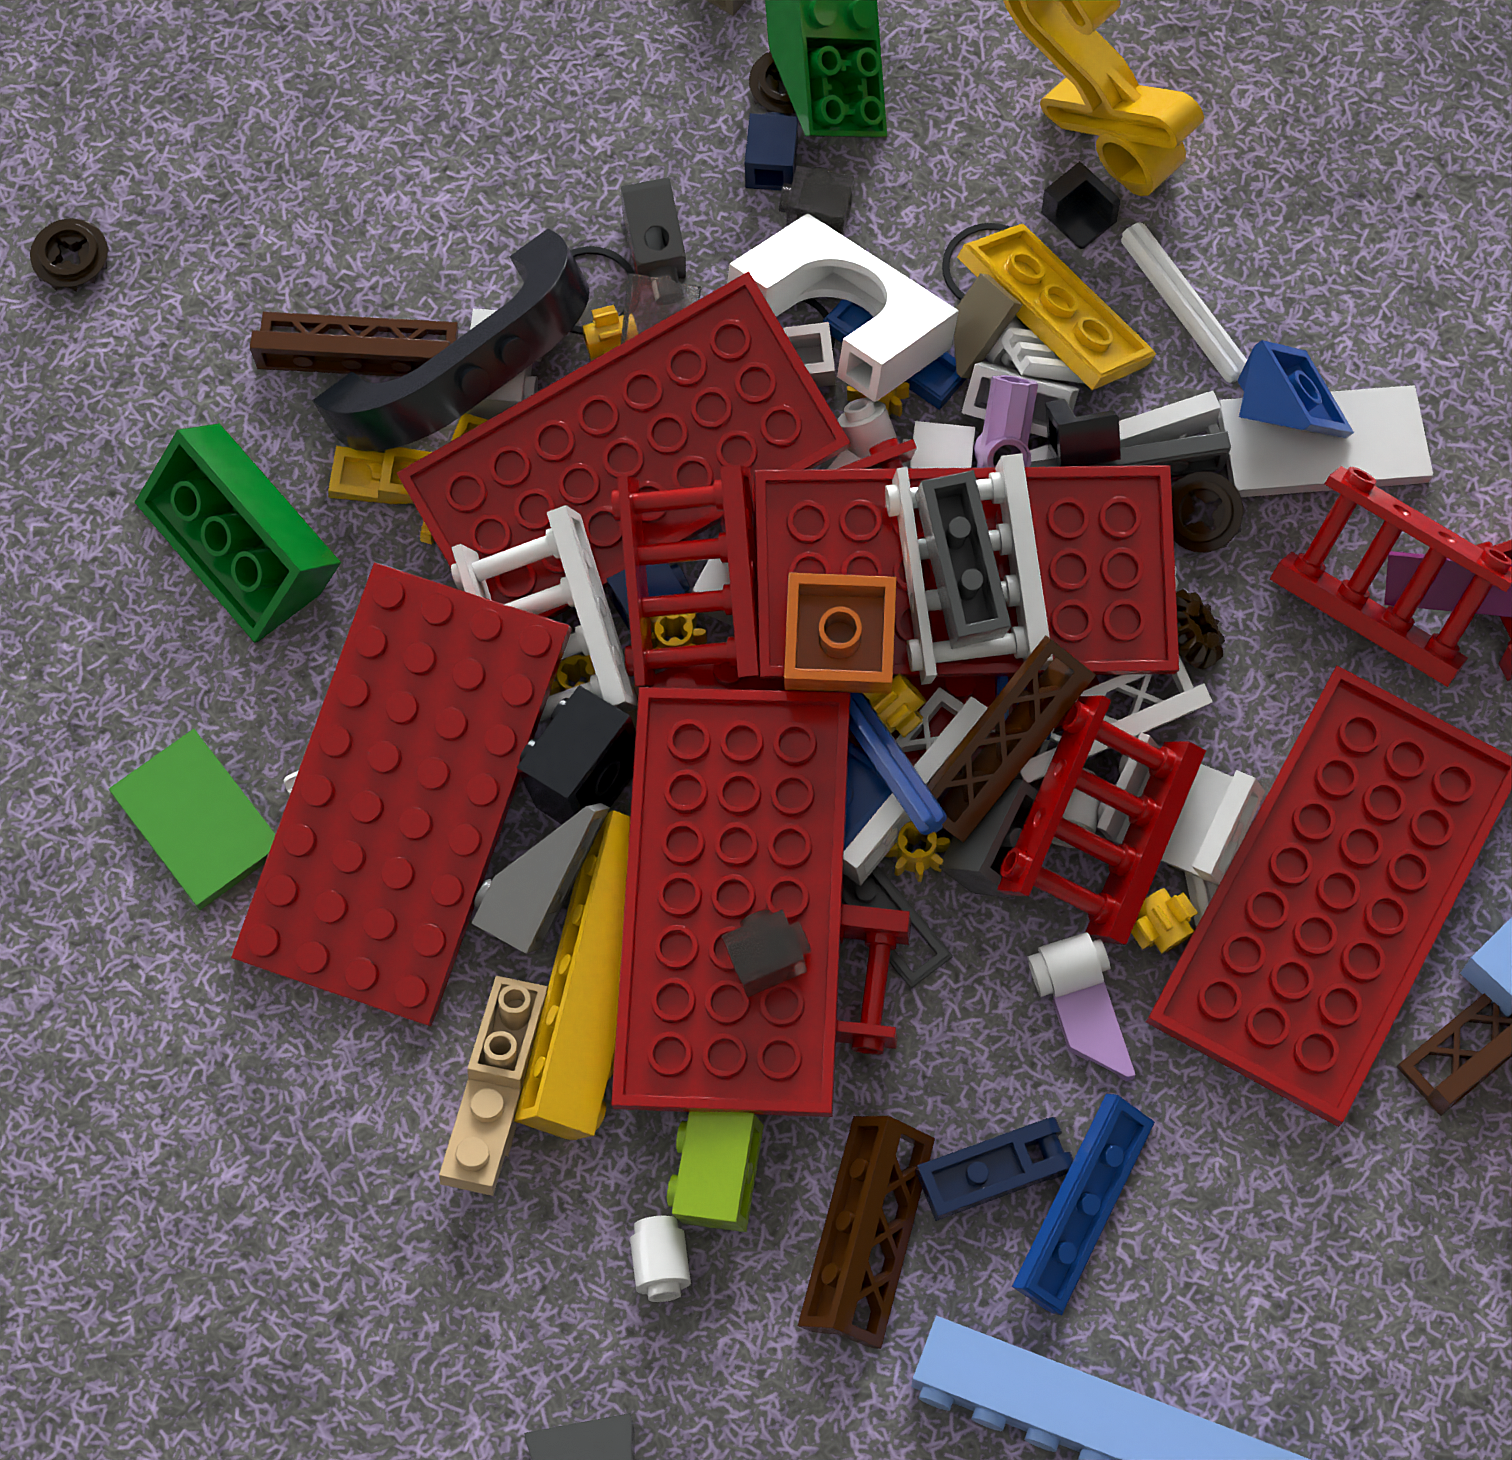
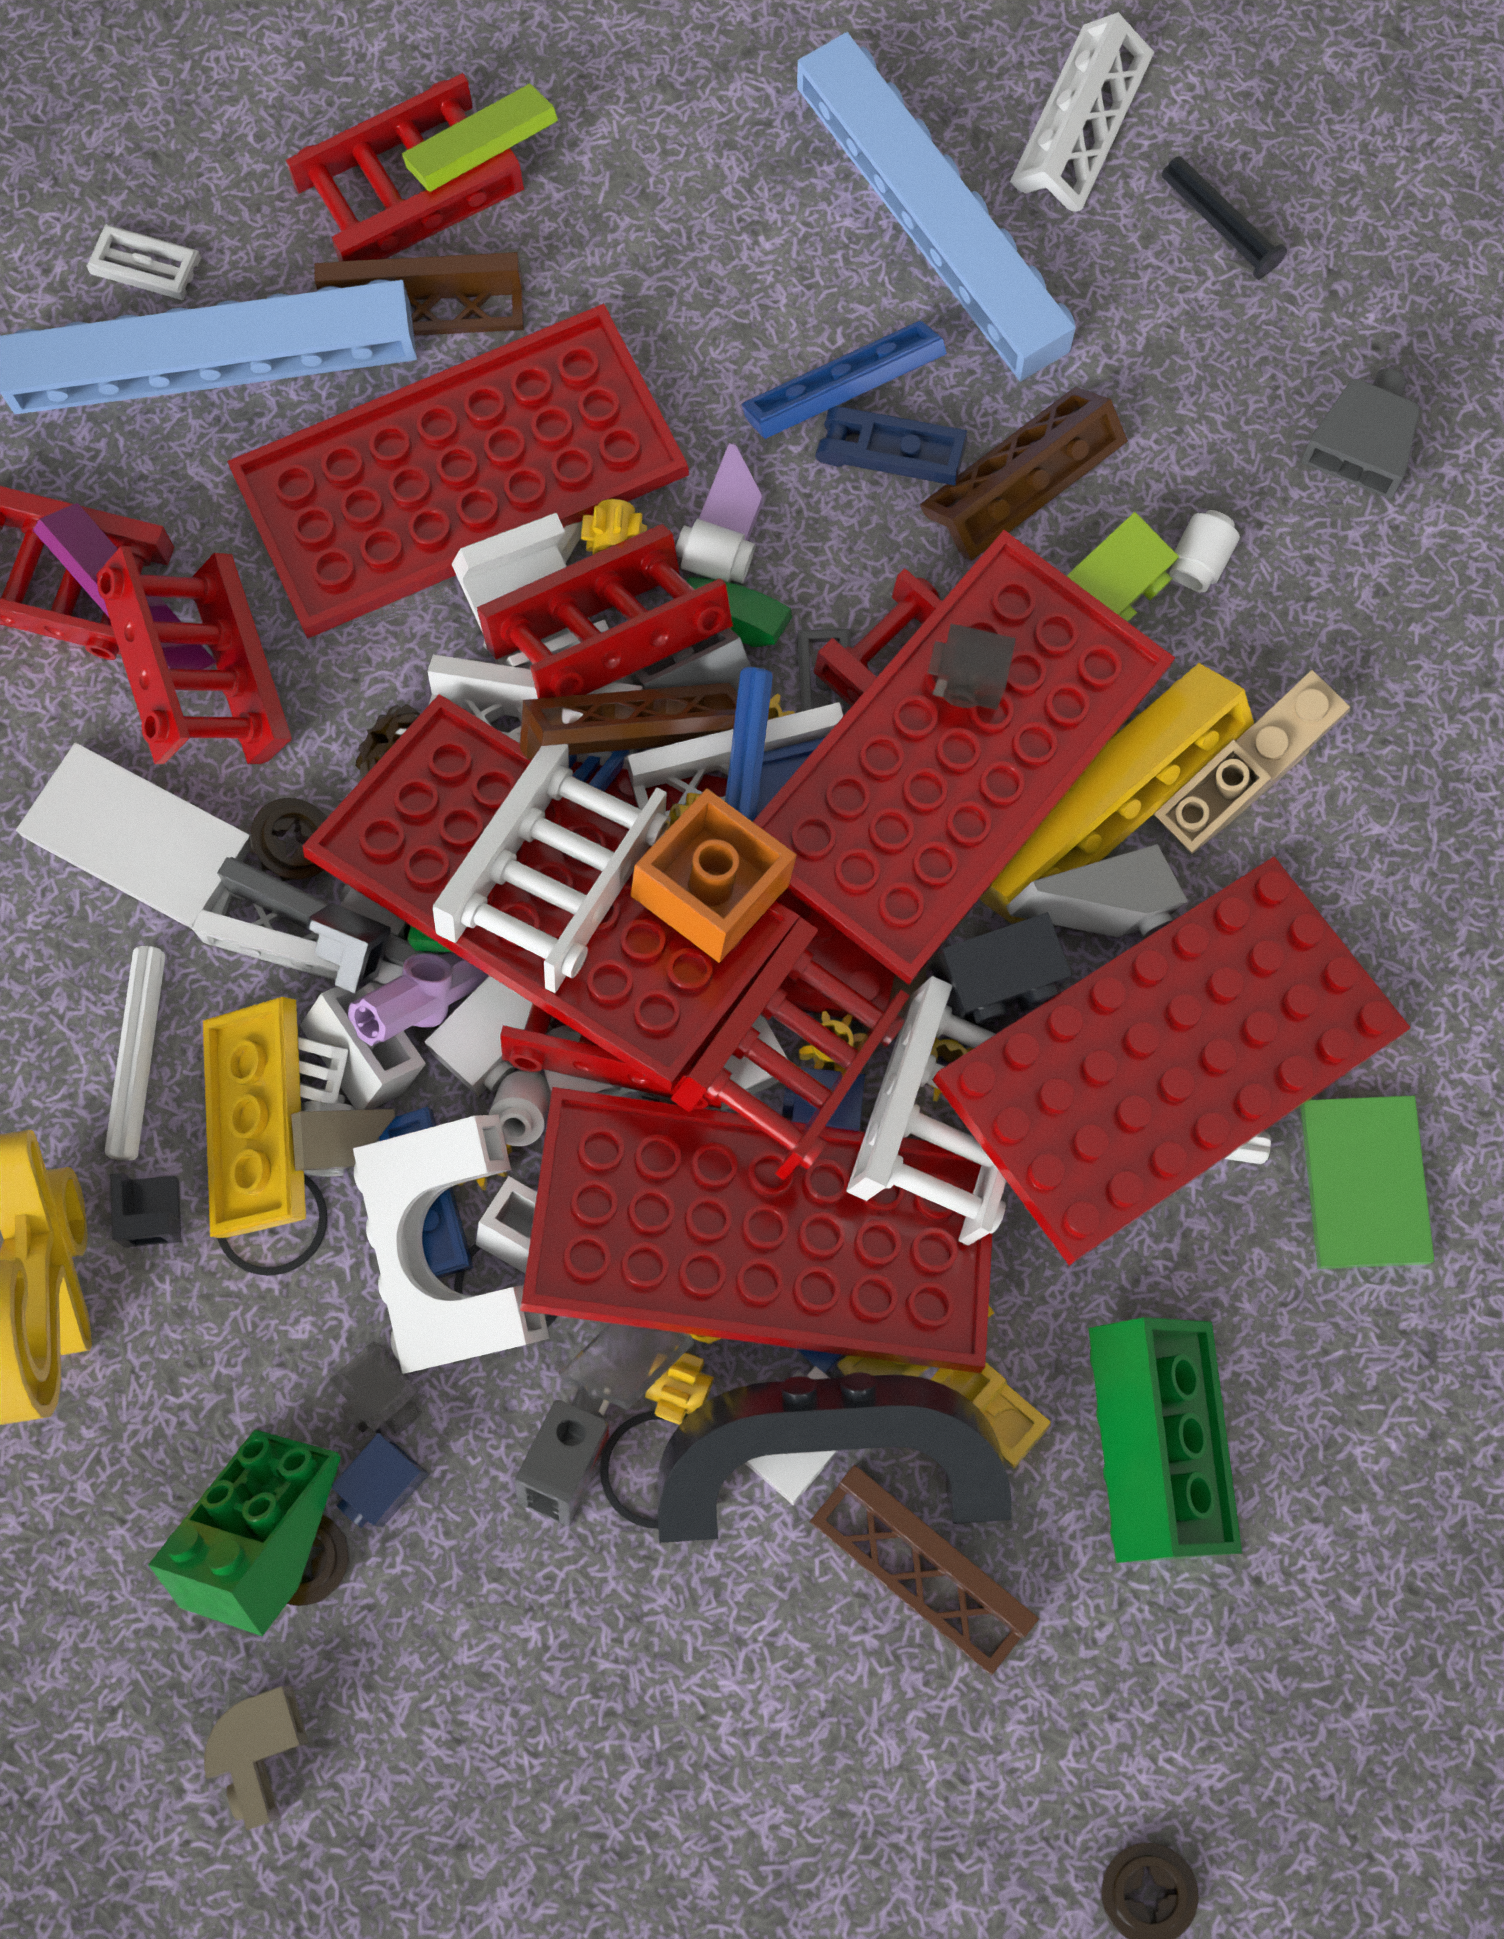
camera: 145 degrees left, 5 degrees up
(962, 559) = (564, 841): dark grey brick -> none
(1012, 924) = (754, 615): none -> green slope
(1288, 391) = (136, 868): blue slope -> none

